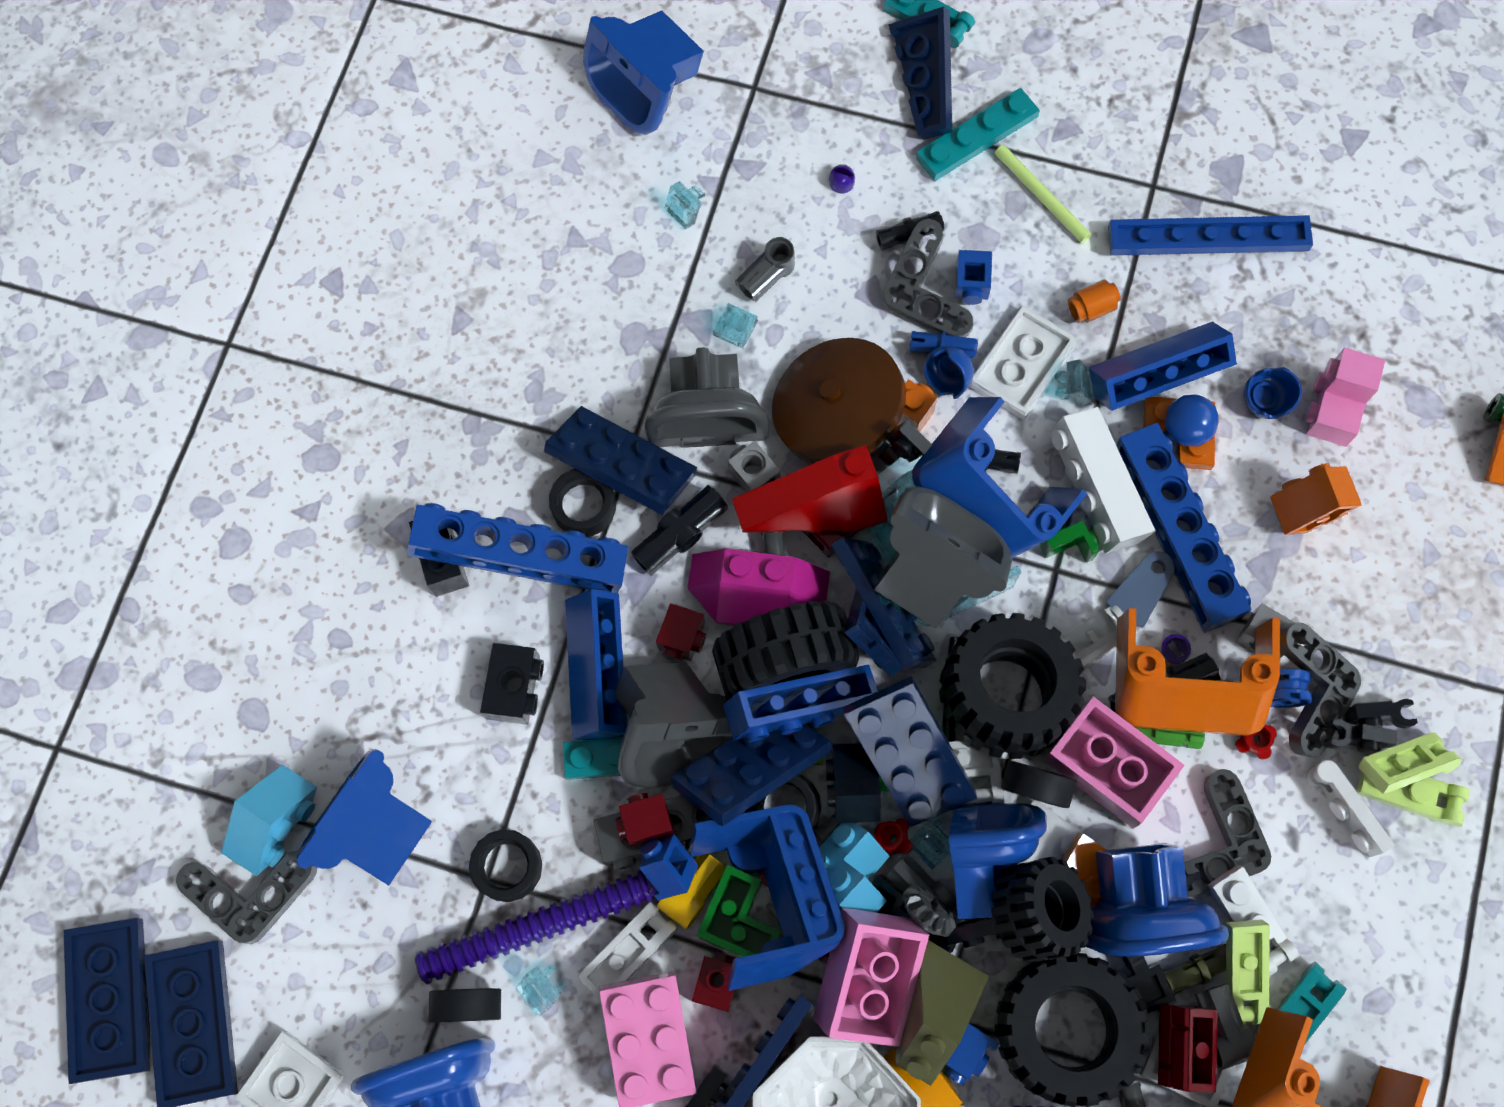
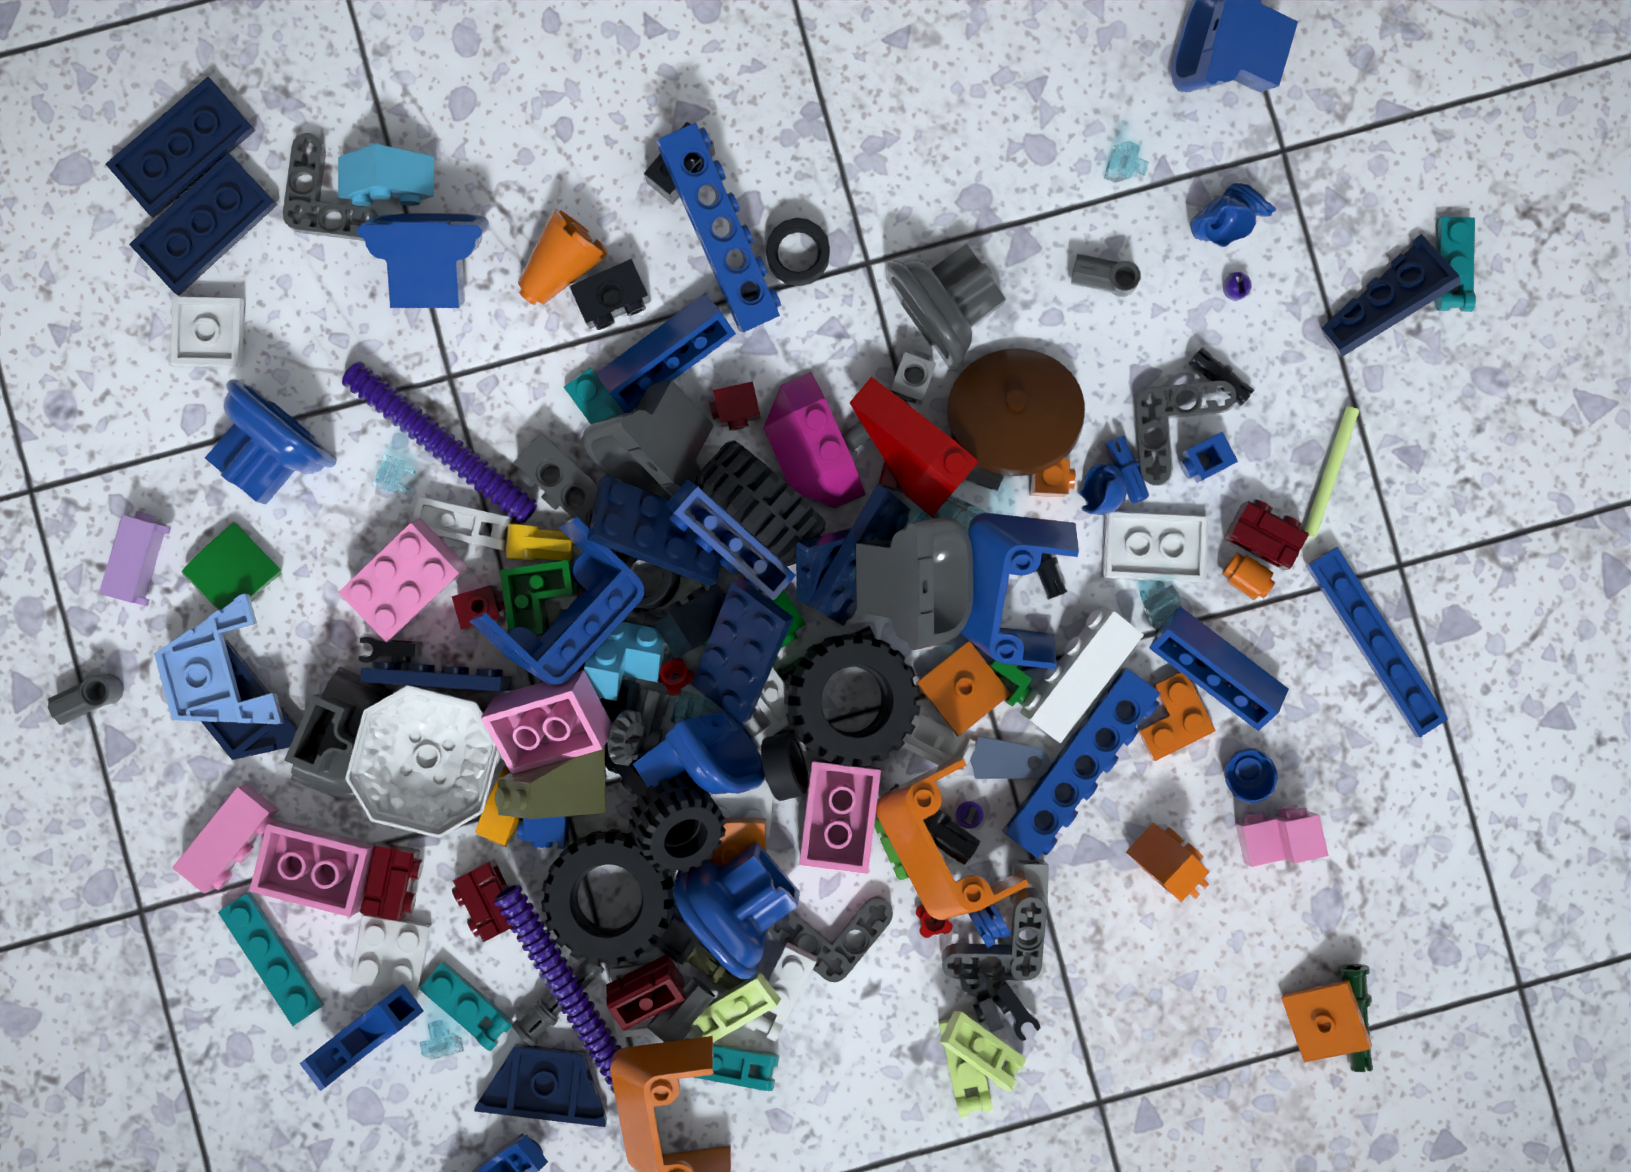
camera: 50 degrees right, 15 degrees up
(449, 708) = (559, 258): none -> orange cone
(464, 1005) = (342, 425): black tyre -> none
(480, 853) = (447, 368): black tyre -> none
(620, 460) = (852, 260): dark blue plate -> none
(644, 819) = (562, 473): dark red brick -> none
(667, 866) = (538, 507): blue brick -> none
(679, 530) = (823, 348): black piece -> none
(735, 325) = (1038, 279): clear light blue tile -> none
(782, 149) = (1230, 215): none -> blue hair
(906, 443) = (1002, 493): black plate -> none
(977, 134) = (1357, 380): teal plate -> none
(1056, 588) = (963, 688): none -> orange plate
(1067, 267) = (1266, 534): none -> dark red brick
(1191, 420) = (1181, 720): blue hair -> none
(1350, 807) = (919, 1020): white plate -> none

